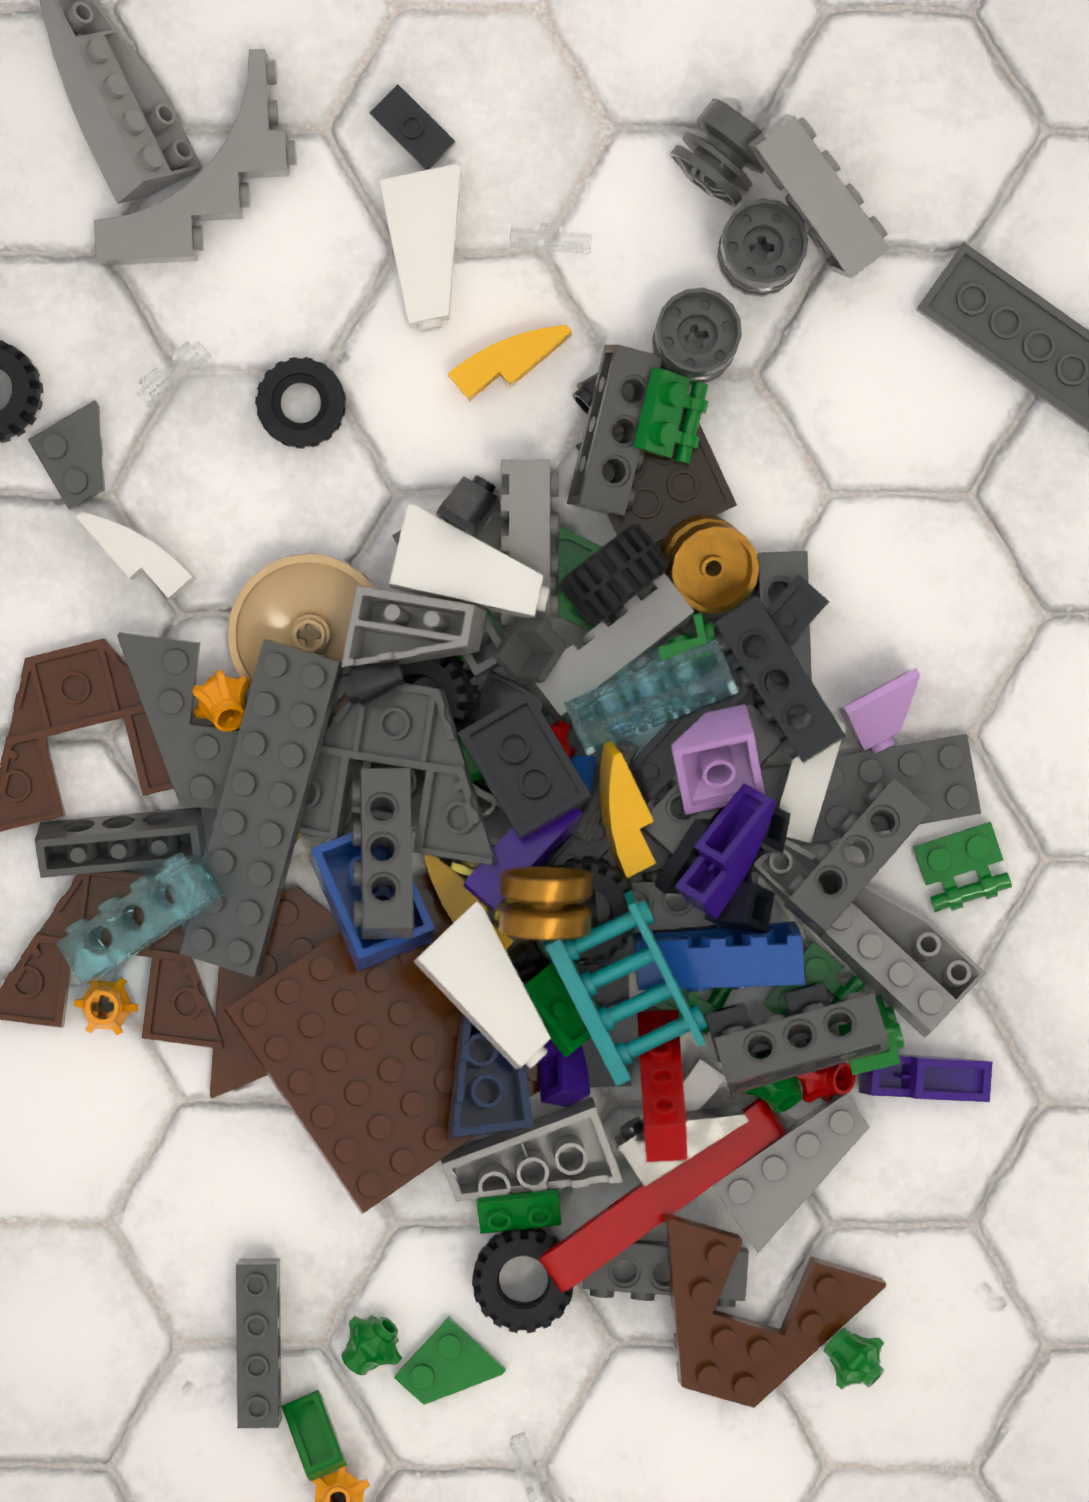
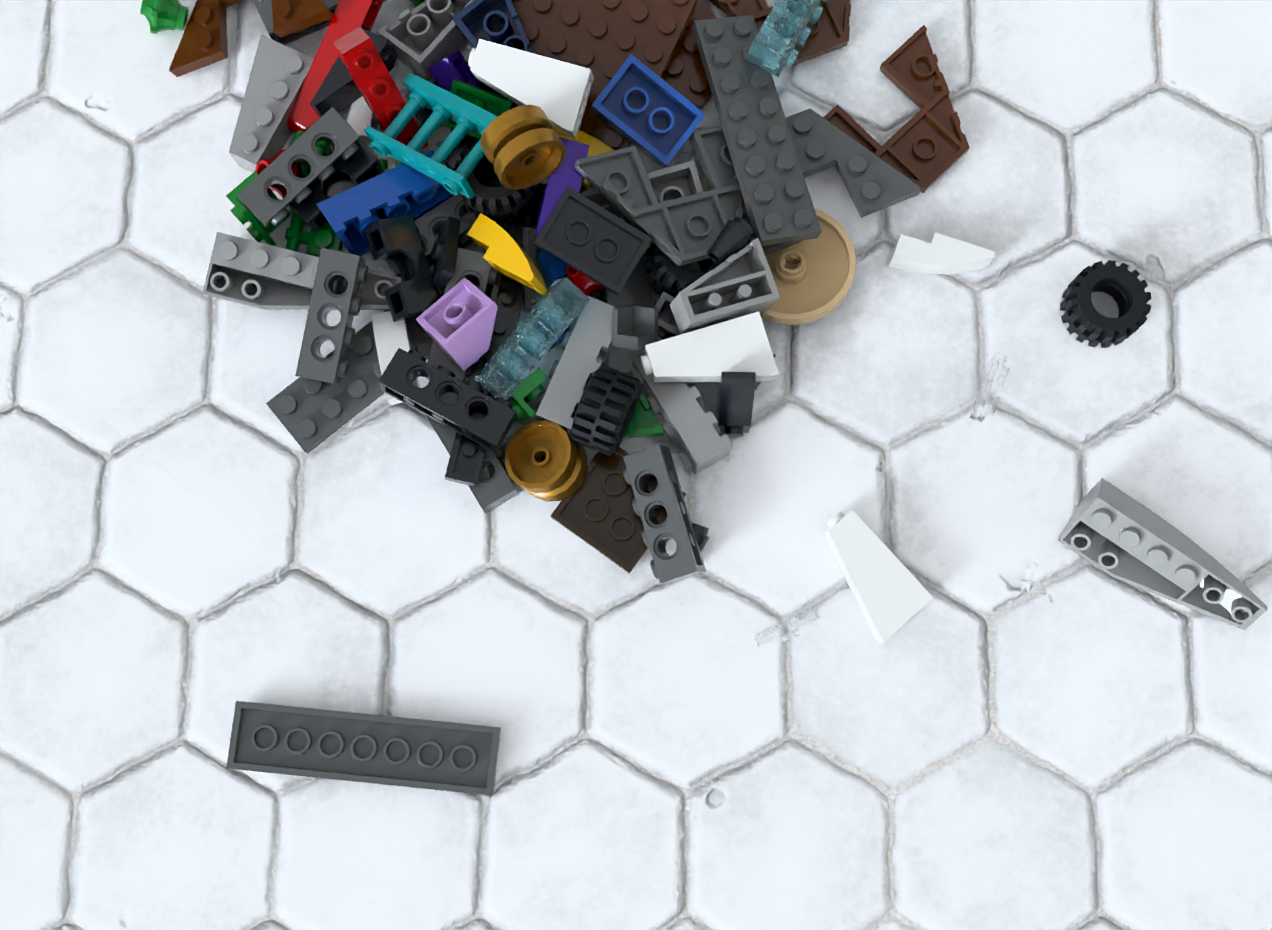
camera: 155 degrees right, 10 degrees down
(73, 455) = (1020, 298): dark grey wing -> none
(118, 841) = (834, 64): dark grey brick -> none
(217, 193) = (1038, 529): light grey arch -> none
(222, 700) = (824, 186): light orange rock -> none
(300, 371) = (906, 398): black tyre -> none
(391, 790) = (641, 83): dark grey brick -> none
(412, 127) = (930, 652): black plate -> none
(507, 358) = (768, 525): yellow slope -> none
(662, 415) = (637, 544): green plate -> none
(710, 318) = (645, 635): dark grey wheel -> none
(721, 154) = (700, 758): dark grey wheel -> none
(727, 851) = (419, 262): dark purple slope -> none
(778, 231) = (630, 725): dark grey wheel -> none
(819, 195) = (613, 763): light grey wedge -> none
(881, 712) = (371, 432): lavender slope -> none
(931, 1079) = (201, 215): dark purple slope -> none
(959, 854) = (267, 369): green plate -> none

